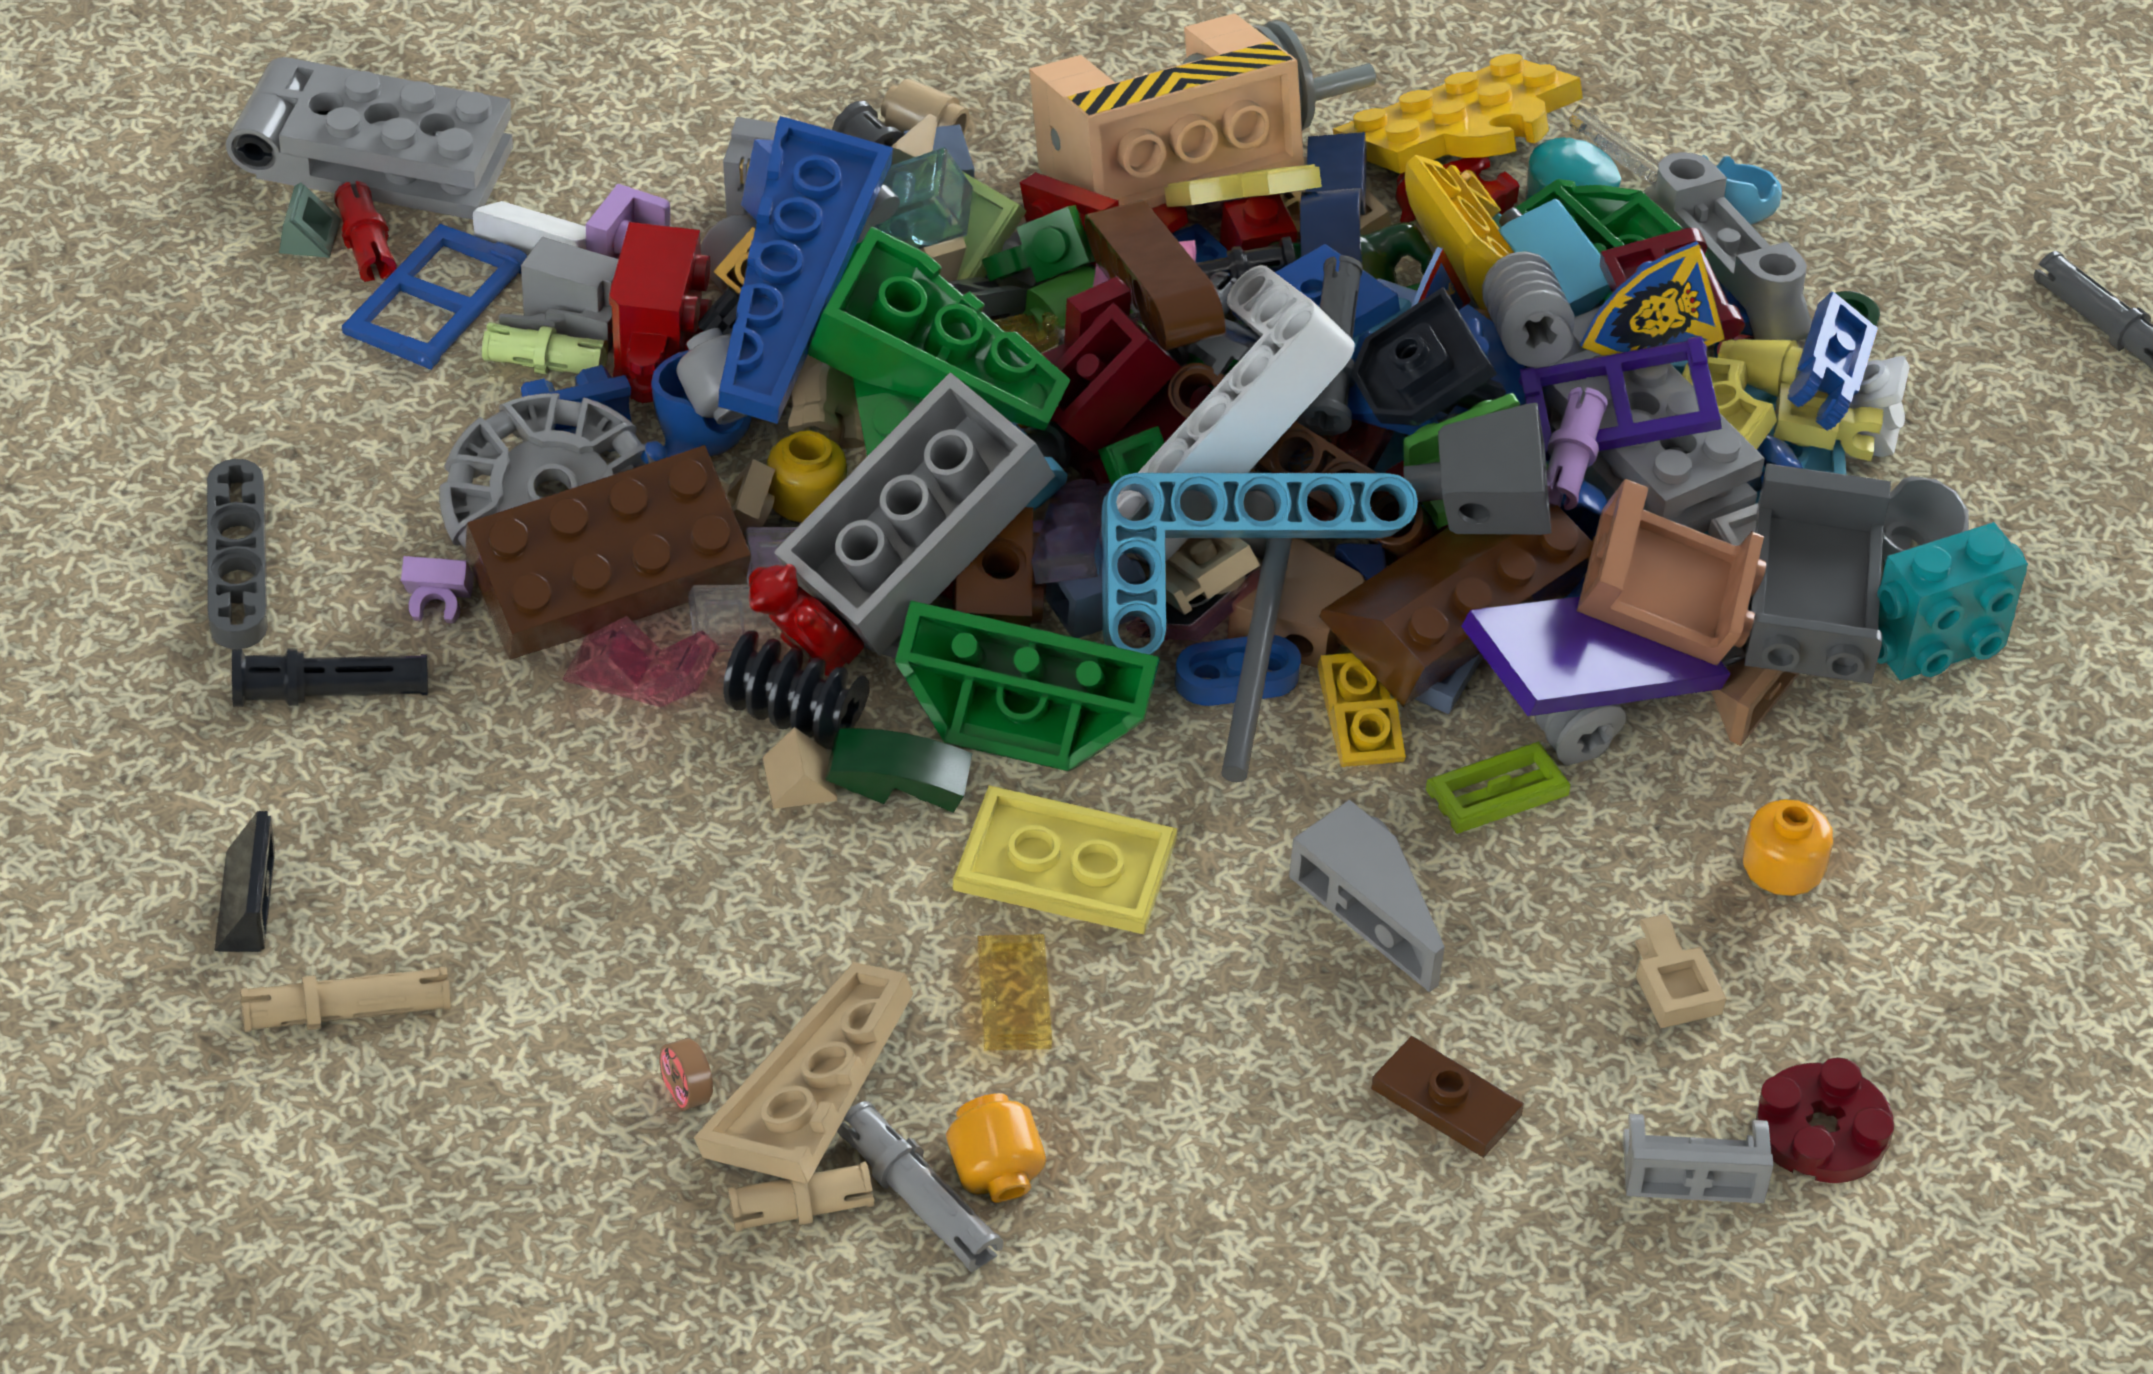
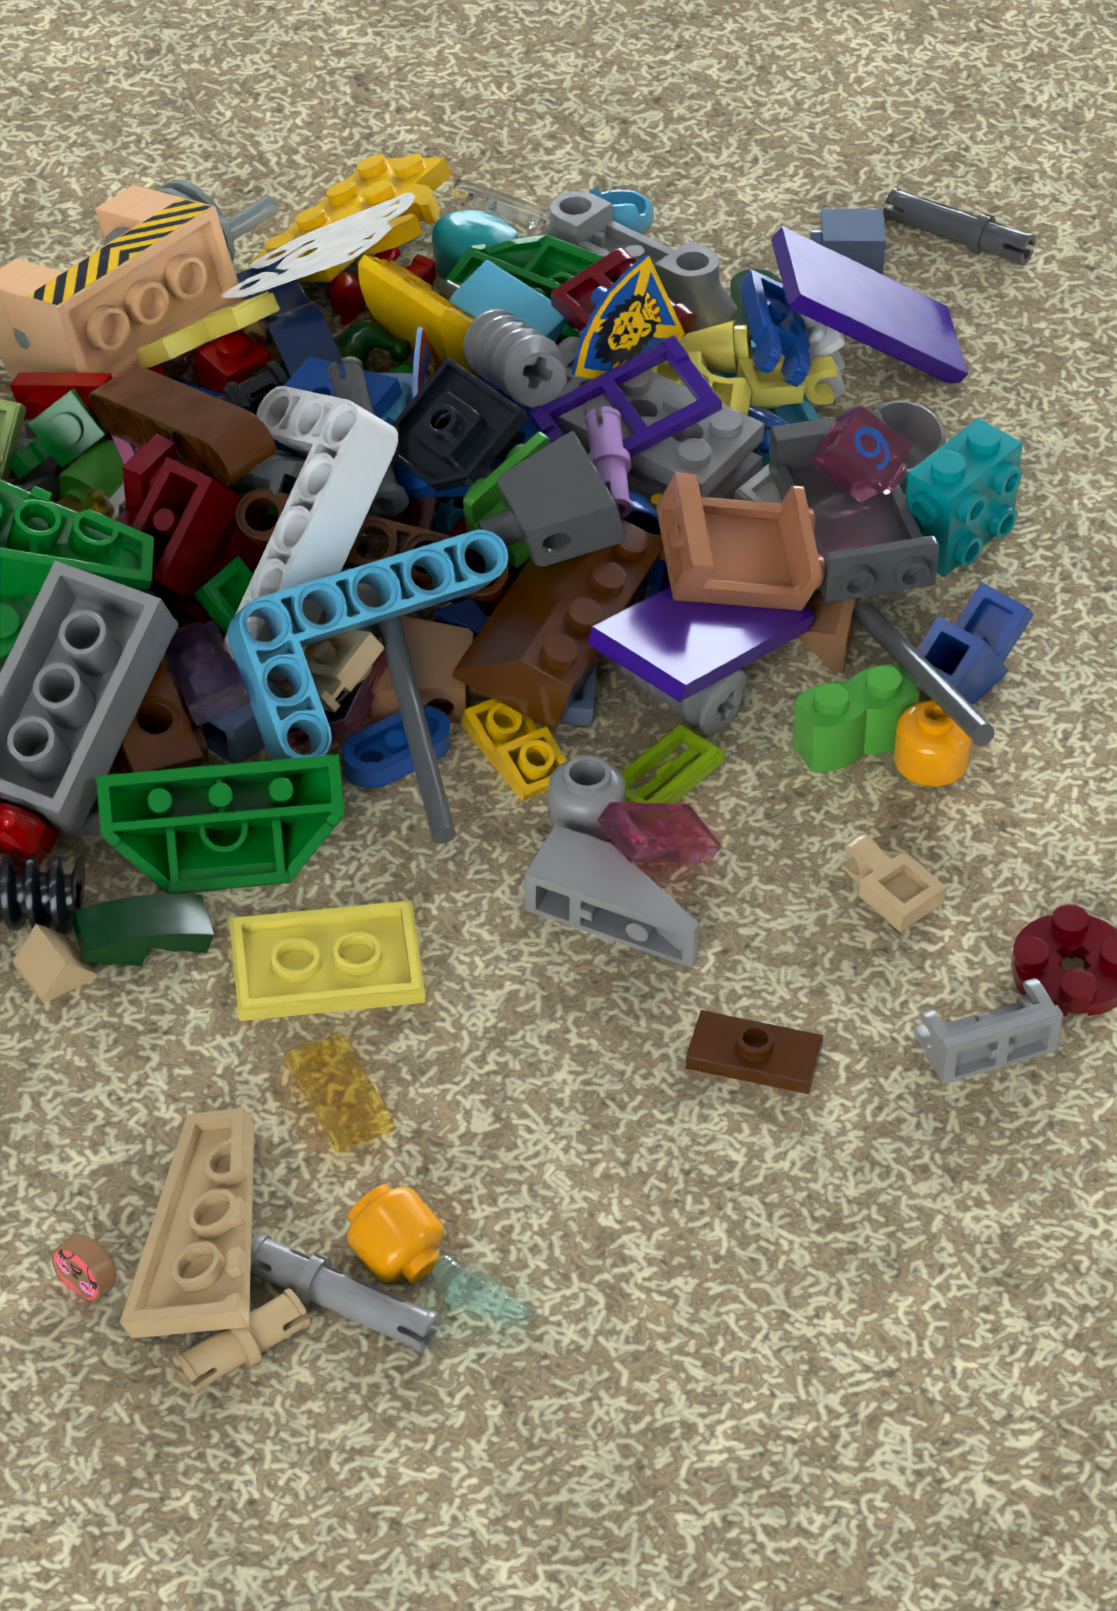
camera: 20 degrees left, 0 degrees up
(1053, 1234) = (478, 1293): none -> clear light blue bar
(1398, 785) = (581, 792): none -> light grey head
(1408, 133) = (332, 244): none -> white piece
(1454, 843) = (658, 832): none -> clear pink plate
(1714, 793) = (851, 718): none -> bright green brick
(1803, 771) = (924, 674): none -> dark grey axle
(1847, 523) = (862, 454): none -> clear pink brick
(1878, 770) = (978, 643): none -> blue brick
(1949, 369) = (868, 306): none -> tile
(1975, 296) = (854, 234): none -> sand blue brick

